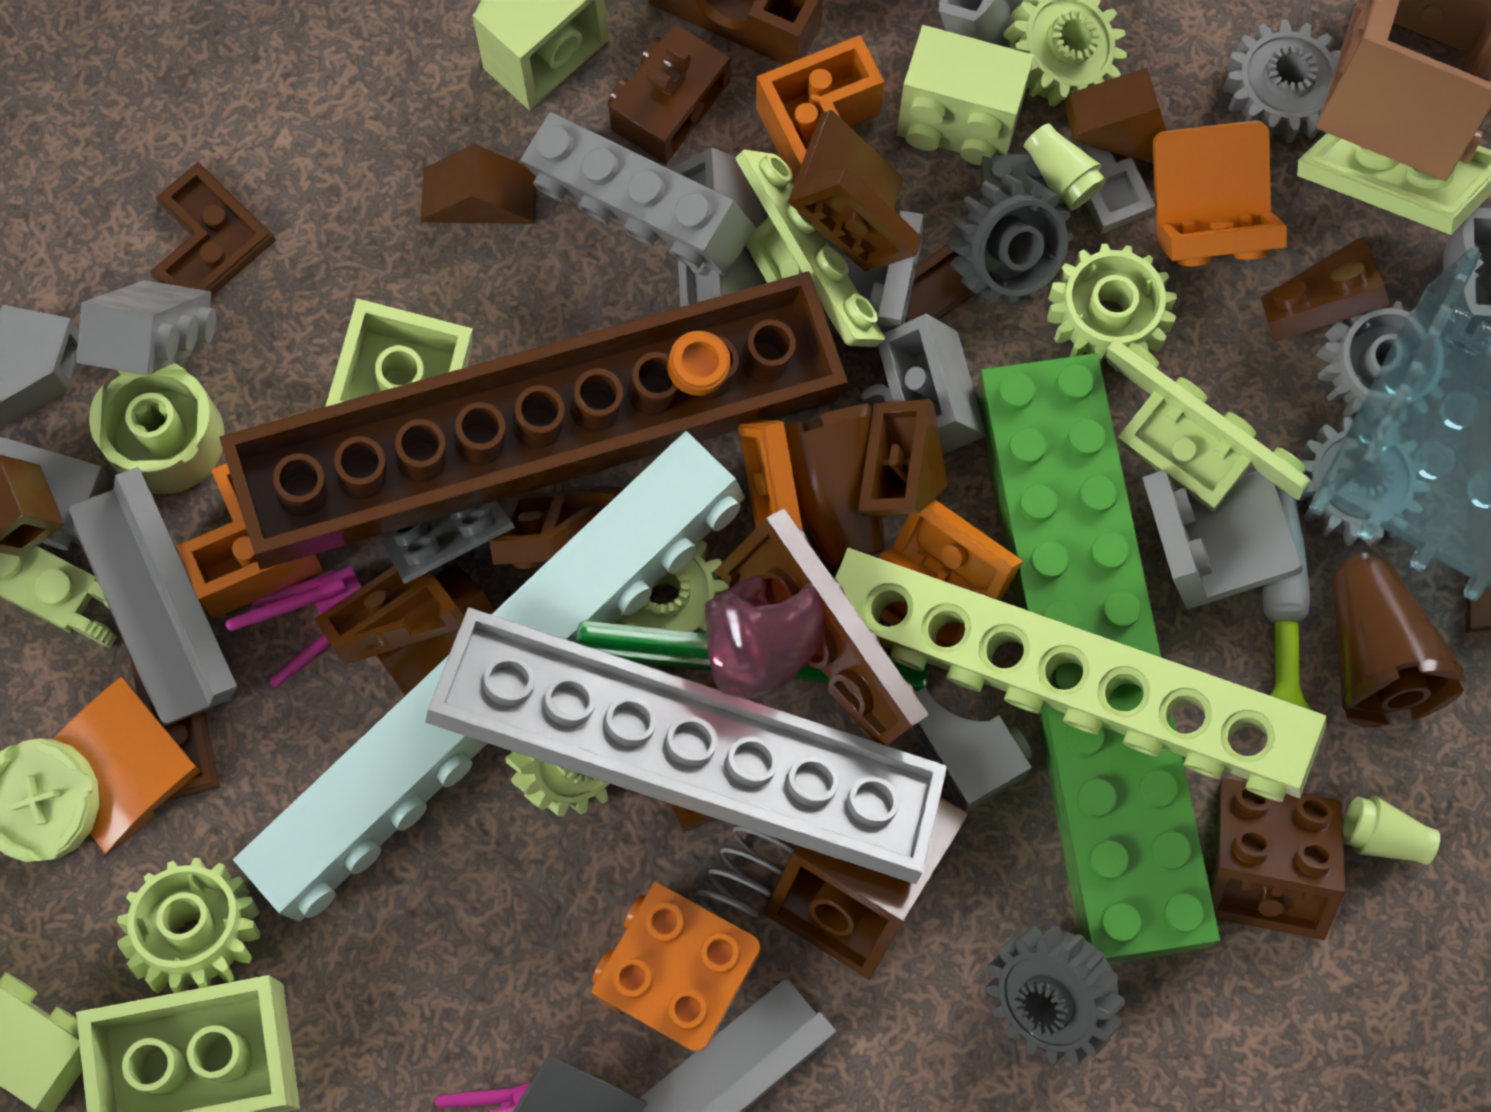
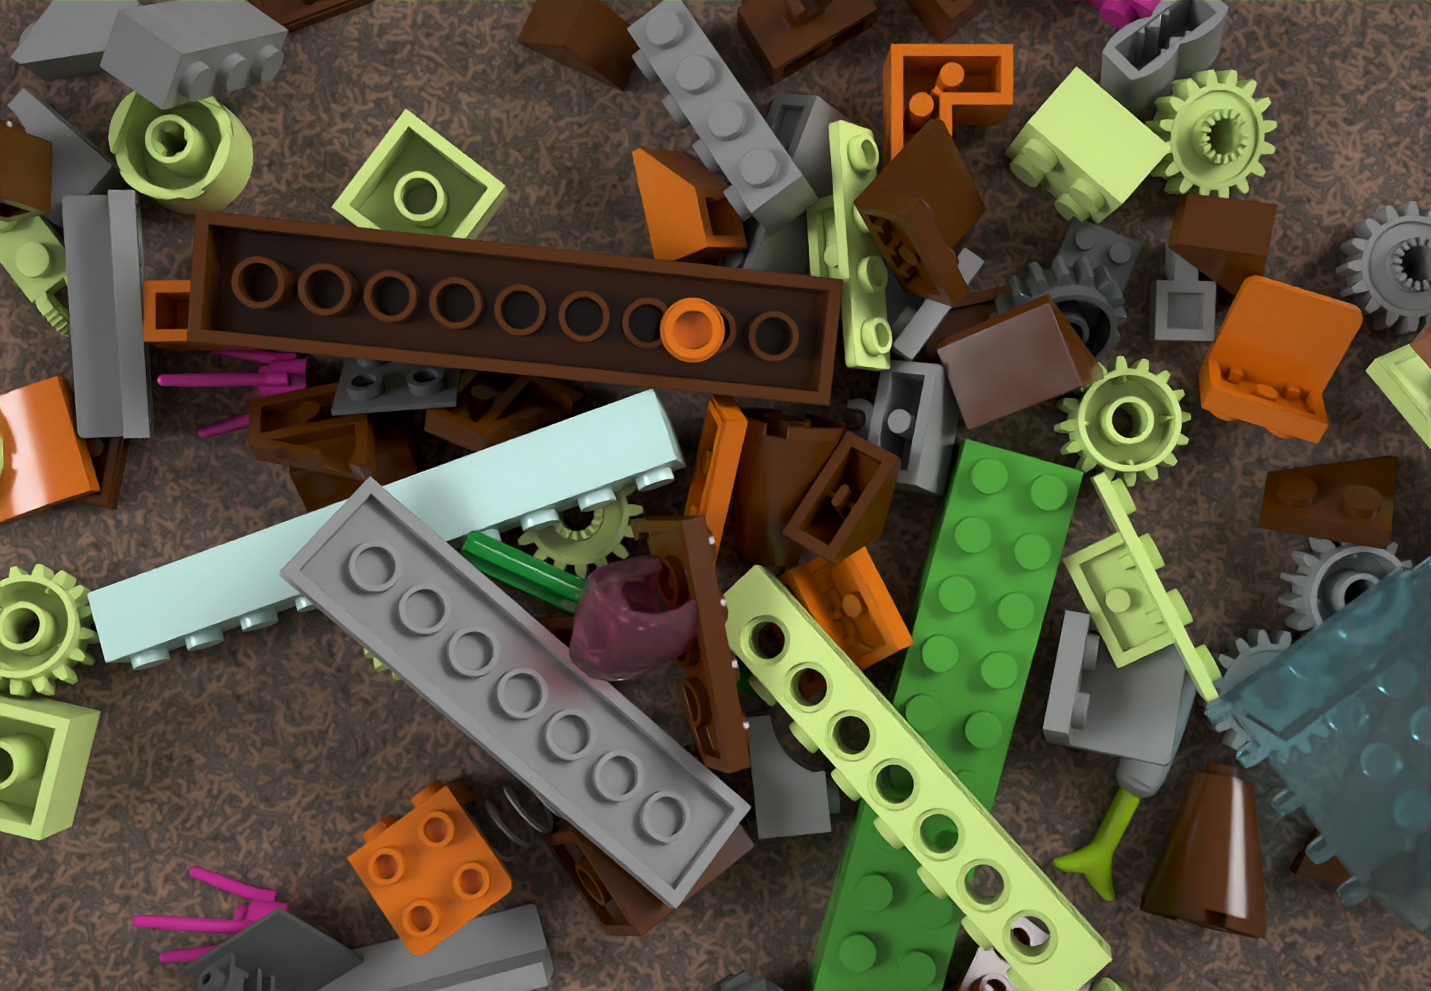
camera: 25 degrees right, 15 degrees up
(637, 283) = (686, 208): none -> orange slope
(993, 286) = (1015, 362): none -> reddish brown slope
(1064, 166) = (1145, 267): yellowish green cone -> none

